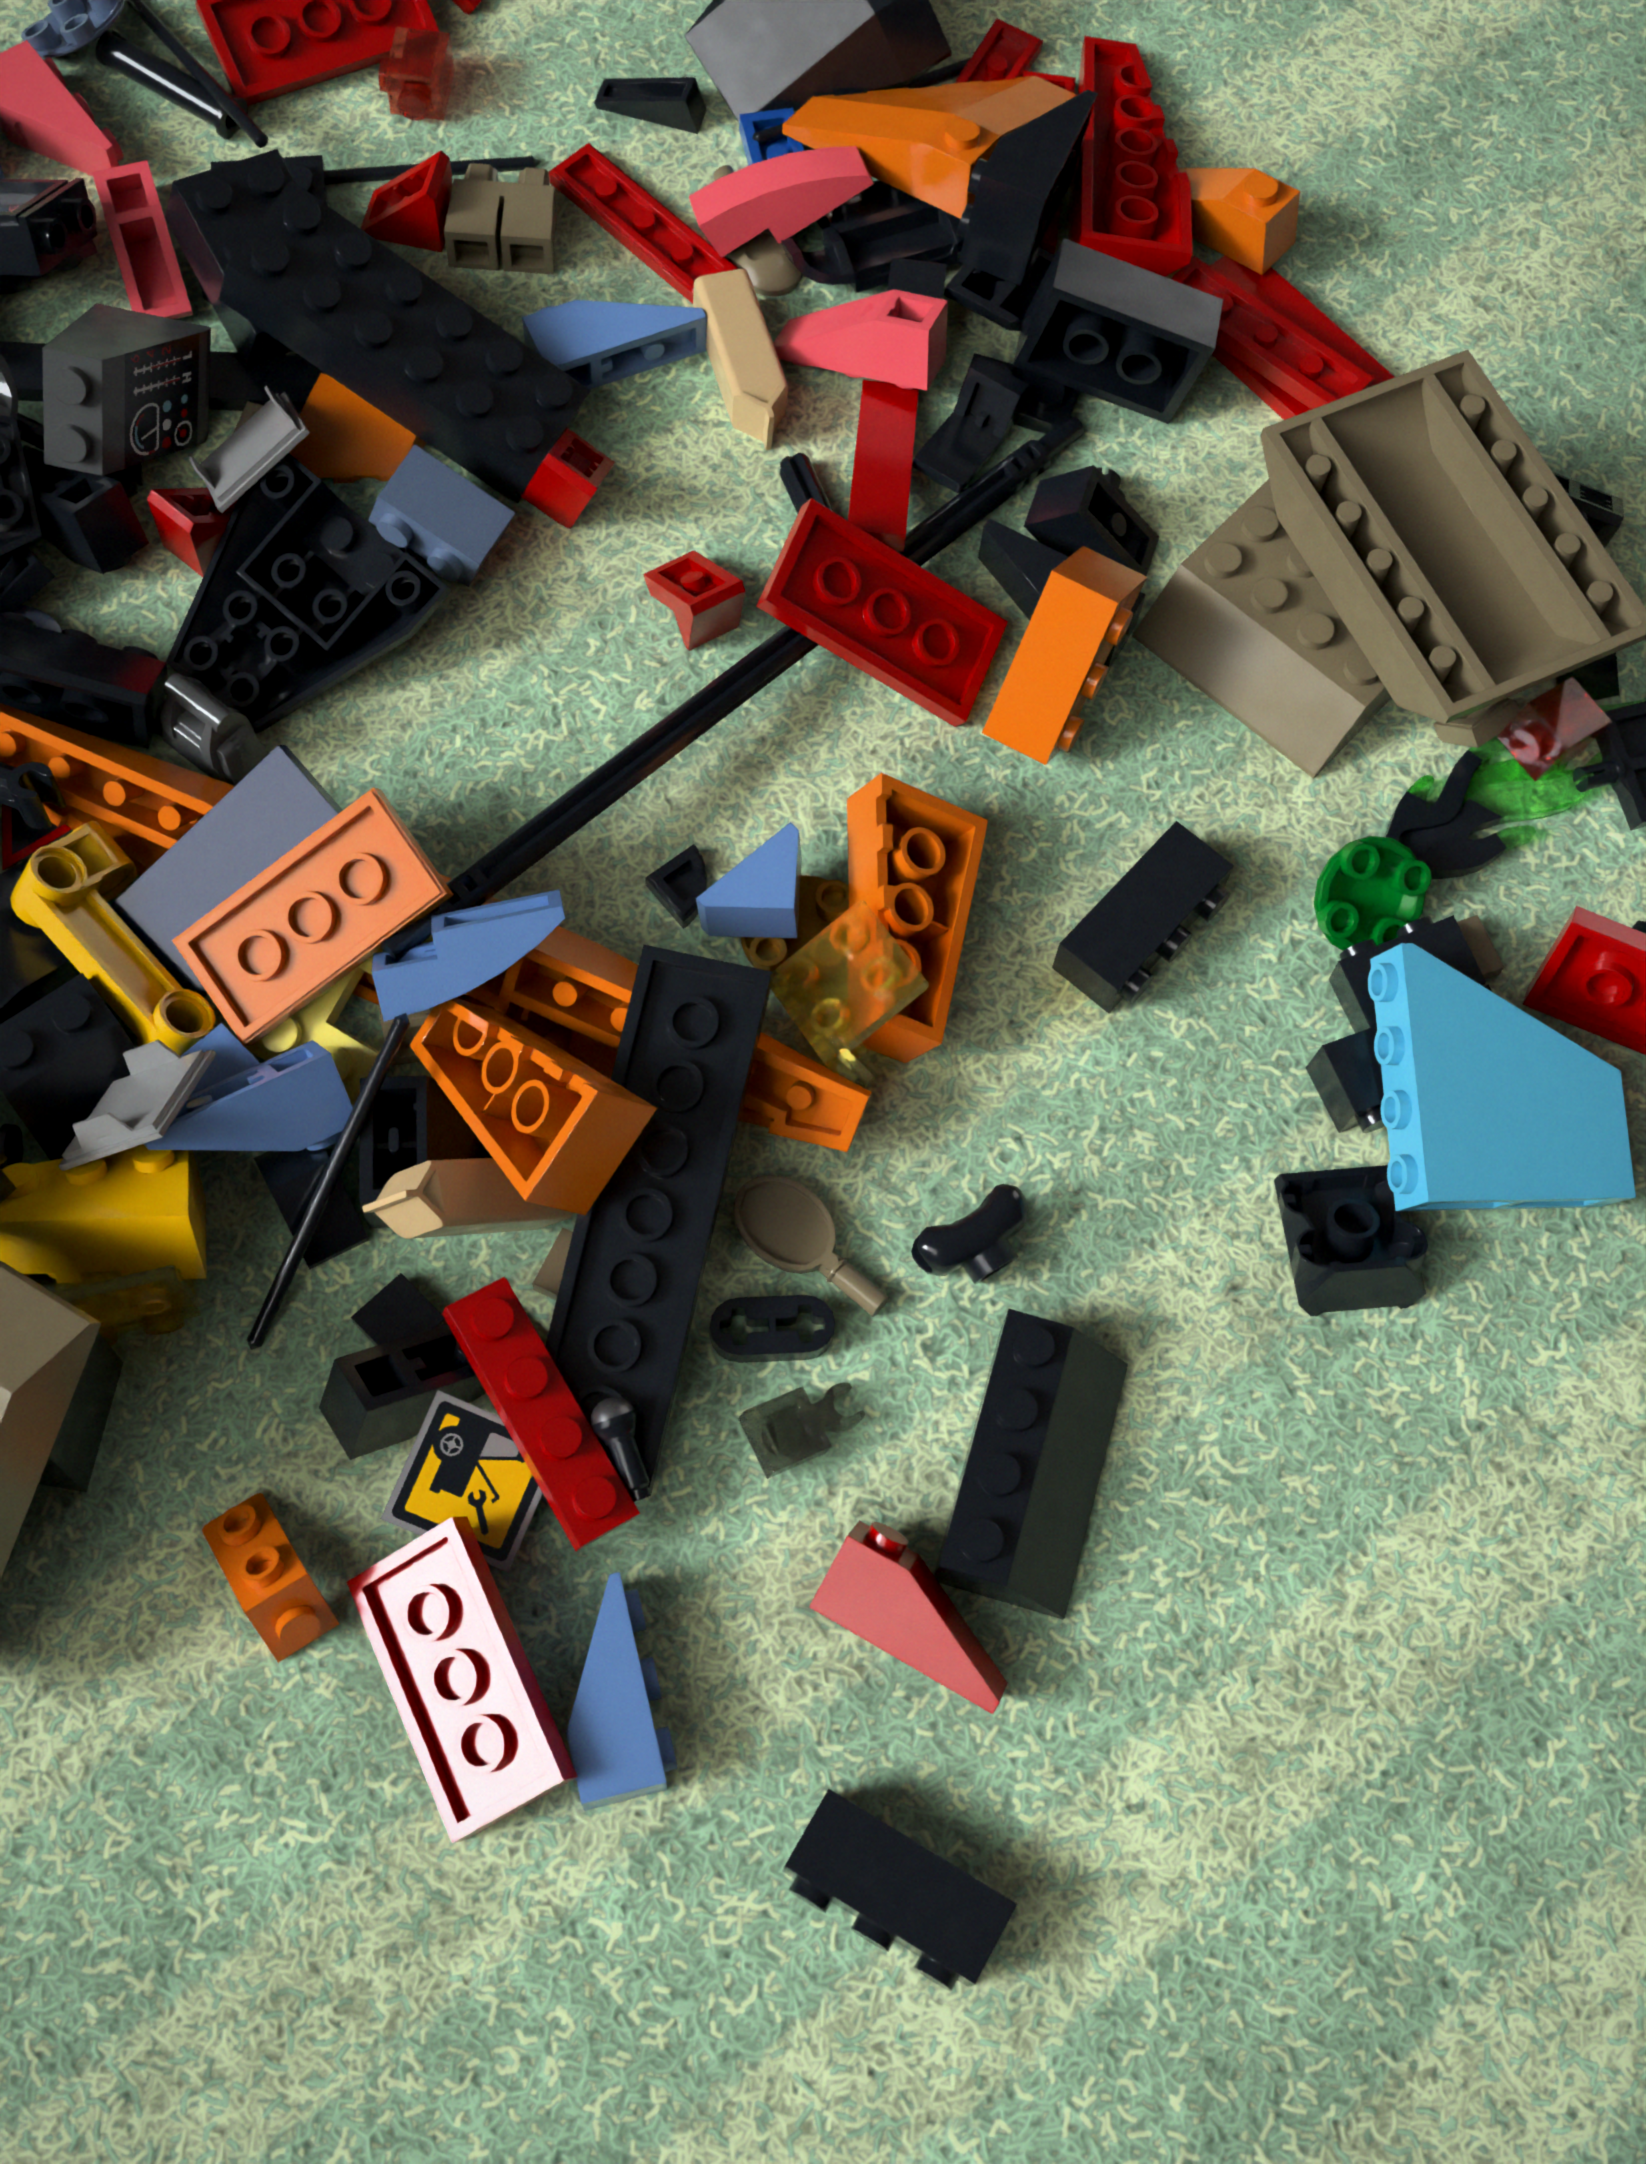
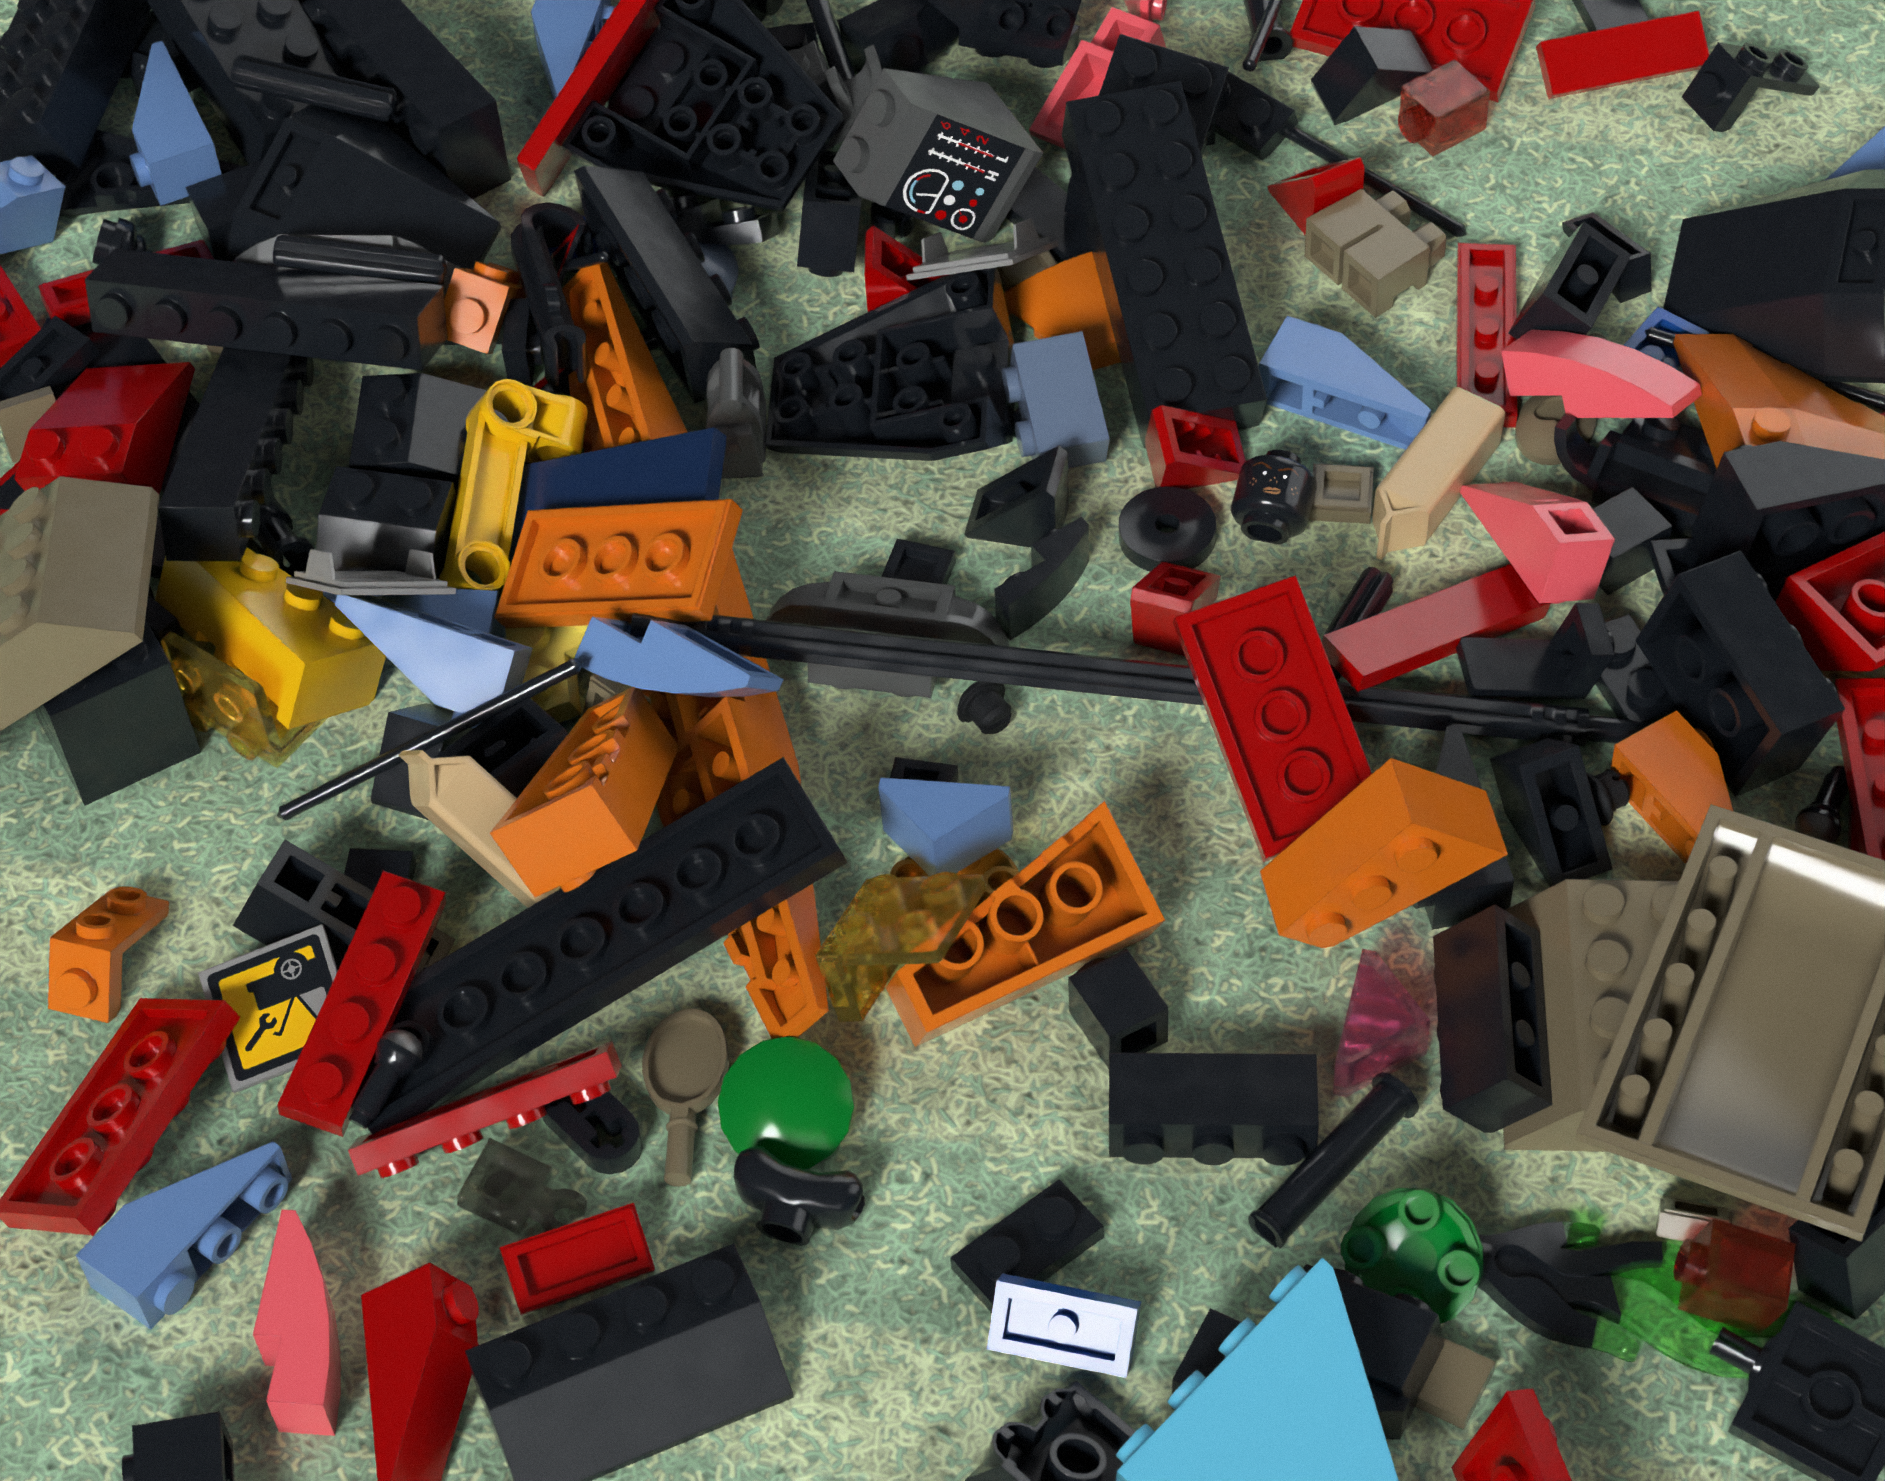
camera: 60 degrees right, 15 degrees down
(337, 86) = (1368, 71): none -> black slope
(483, 732) = (919, 562): none -> black tile
(503, 613) = (1023, 502): none -> black slope
(512, 785) = (889, 608): none -> dark grey plate
(584, 653) = (1056, 567): none -> black slope
(613, 526) = (1173, 509): none -> black piece
(660, 787) = (985, 707): none -> black piece
(664, 461) = (1273, 497): none -> black head
(679, 144) = (1573, 285): none -> black brick
(692, 422) = (1342, 493): none -> dark tan tile
(718, 1393) = (460, 1121): none -> red plate
(787, 1672) = (299, 1335): none -> coral slope
(893, 1183) = (788, 1100): none -> green dish
(893, 1428) = (577, 1259): none -> red tile
(1010, 910) = (1117, 1006): none -> black brick
(1142, 1122) = (1029, 1242): none -> black plate
(1165, 766) = (1380, 1029): none -> clear pink slope
(1167, 451) = (1672, 779): none -> orange slope
(1232, 701) = (1491, 1020): none -> black brick
(1234, 1147) = (1064, 1325): none -> plate
(1236, 397) = (1822, 815): none -> black piece
(1245, 882) = (1333, 1159): none -> black pin

